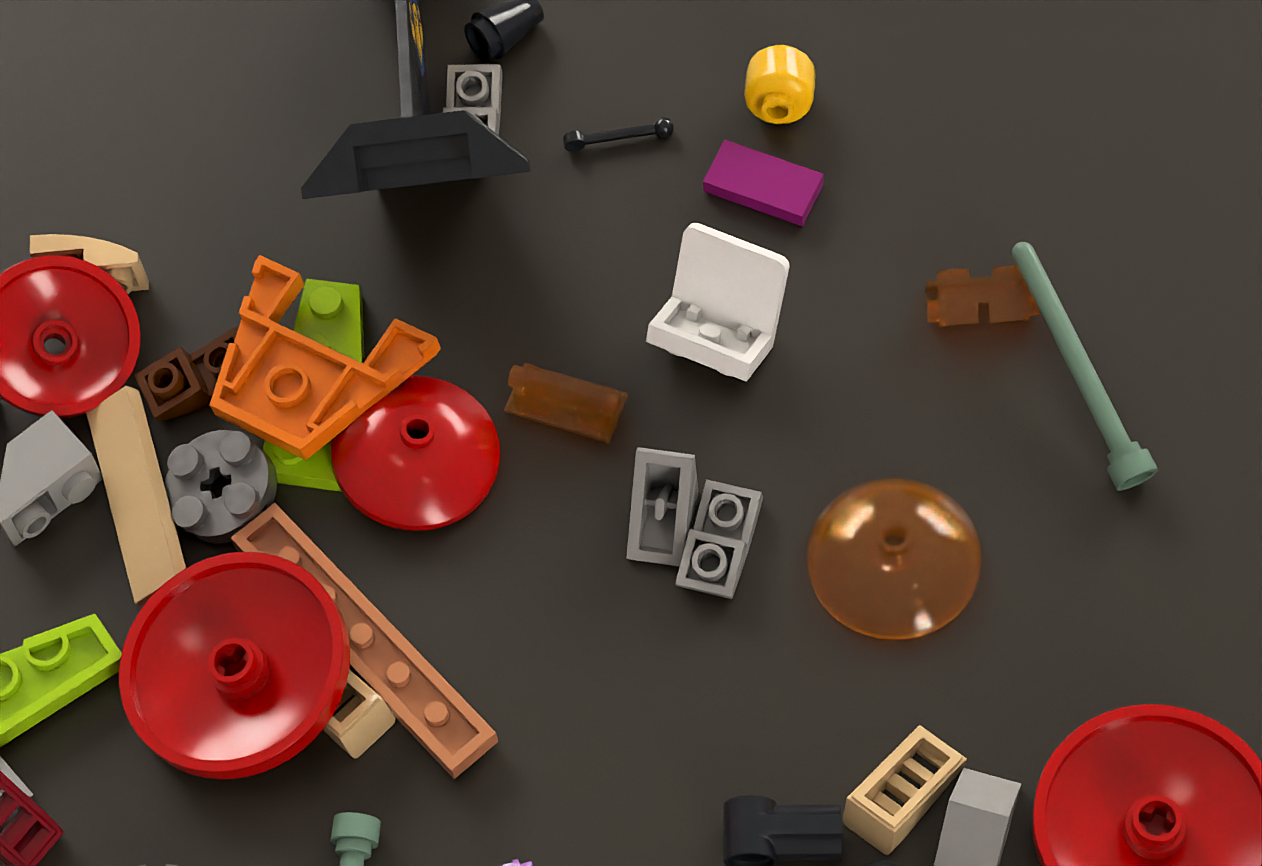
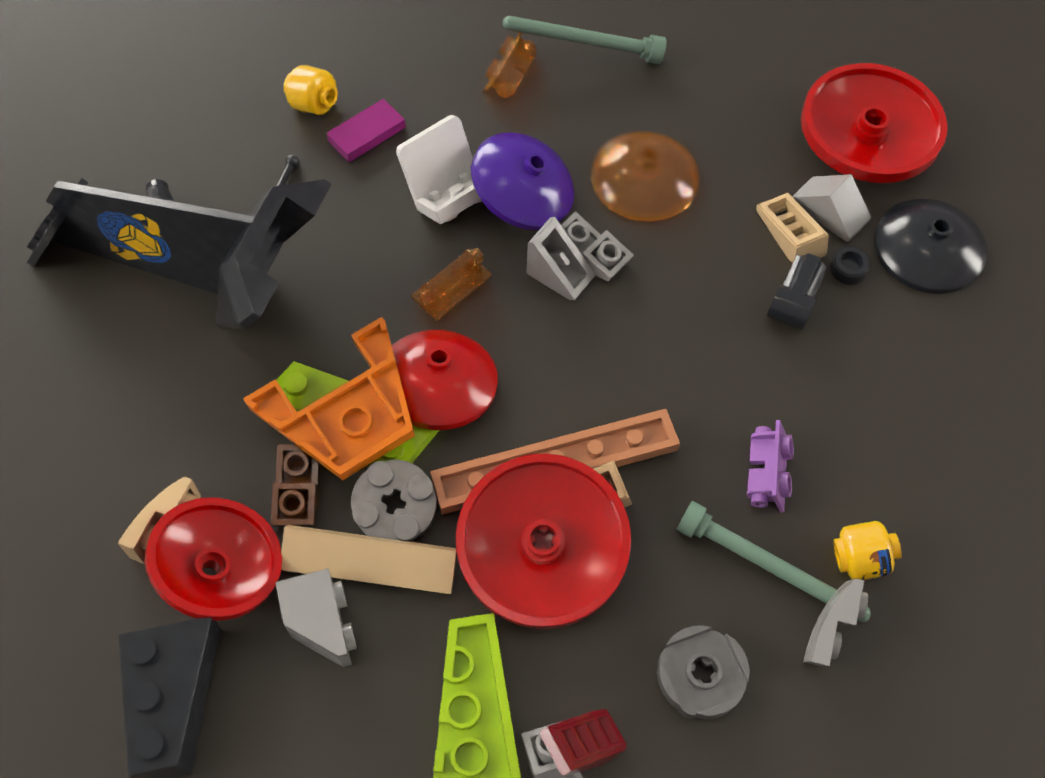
camera: 75 degrees left, 0 degrees up
(737, 426) = (522, 180): none -> dark purple dish

